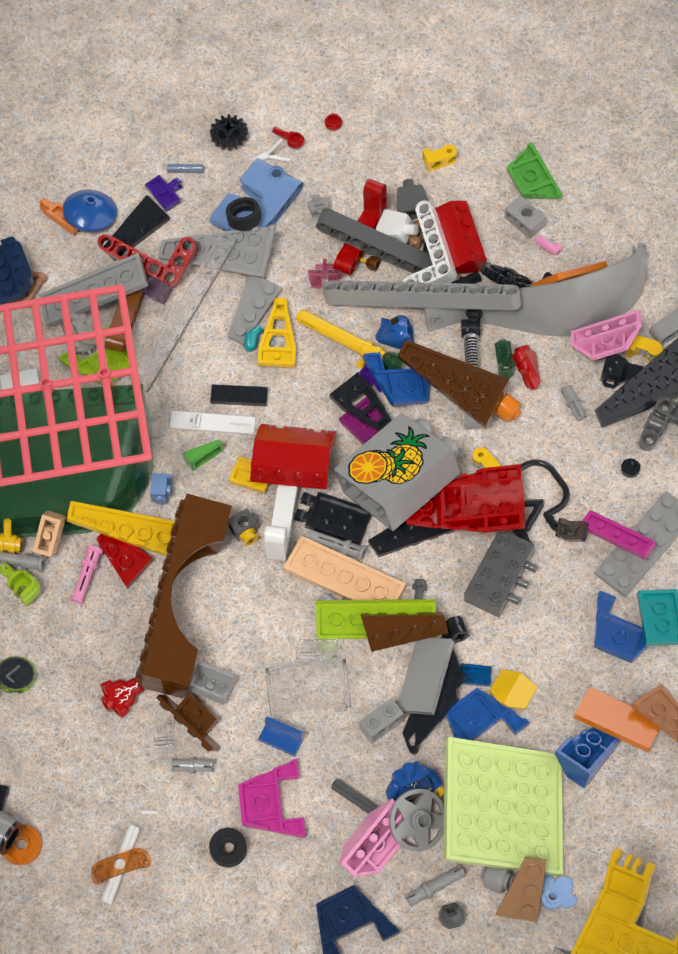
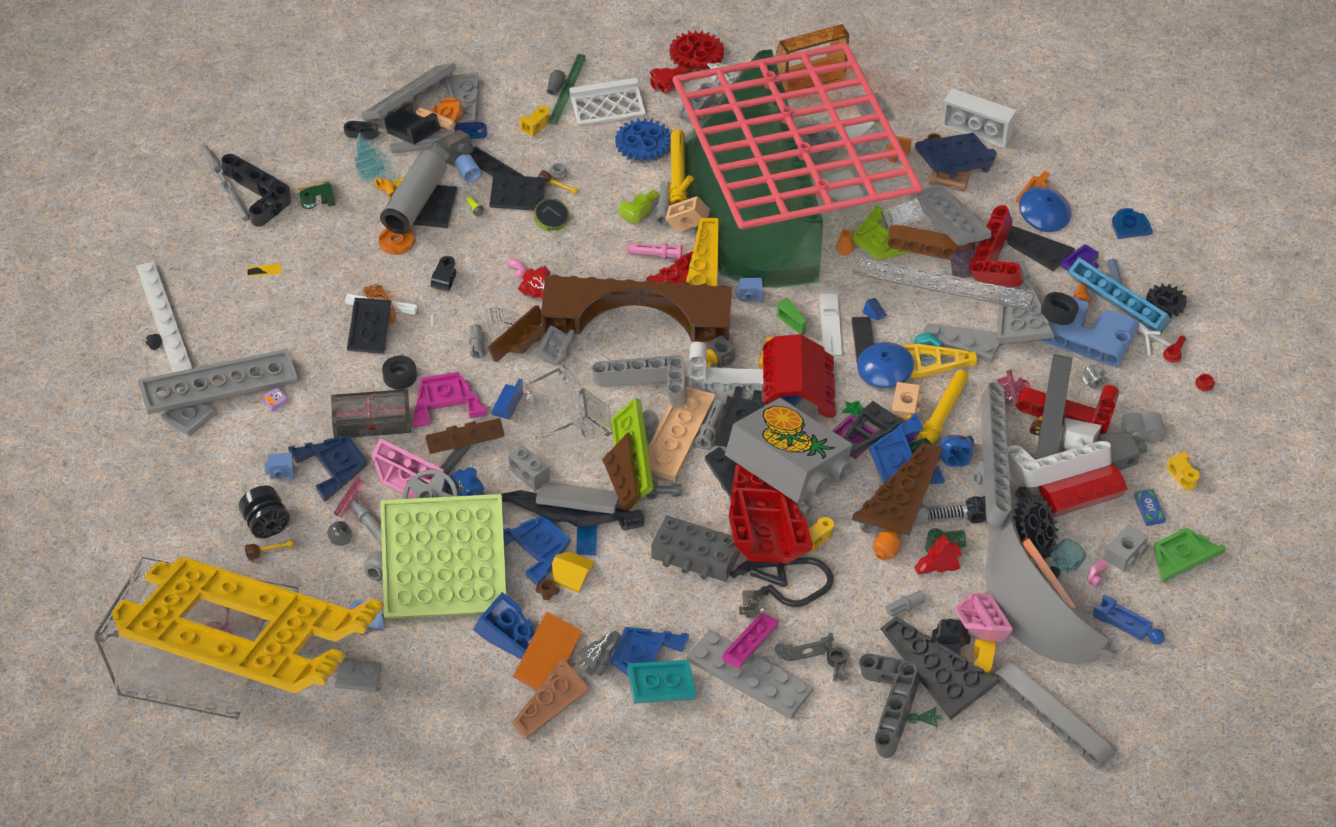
camera: 80 degrees right, 15 degrees down
(86, 713) = (518, 265): none -> bright pink arm
(92, 793) = (444, 274): none -> black piece
(118, 144) = (1130, 224): none -> clear blue tile
(158, 875) = (369, 325): none -> black tile
(204, 379) = (873, 309): none -> blue slope
(210, 199) = (1082, 293): none -> orange cone
(222, 167) = (1119, 296): none -> dark azure brick
(268, 593) = (645, 370): none -> light grey beam
(281, 388) = (885, 365): none -> blue dish
(291, 877) = (371, 413): none -> brick
(322, 371) = (906, 400): none -> light nougat brick
(328, 416) = (853, 408): none -> green plant
(330, 782) = (463, 436): none -> reddish brown bracket
(386, 173) = (1144, 426): none -> light grey brick
(402, 905) = (348, 497): none -> clear pink tile
(476, 192) = (1149, 507): none -> blue tile
(525, 891) = (362, 583): medium nougat wing -> none
(534, 262) = (1068, 555): none -> clear light blue hair
(535, 709) = (547, 584): none -> reddish brown plate
(605, 230) = (1127, 620): none -> blue plate
(622, 477) = (794, 653): none -> dark grey piece
(626, 670) = (598, 654): none -> dark grey rock
(650, 467) = (839, 671): none -> dark grey bush

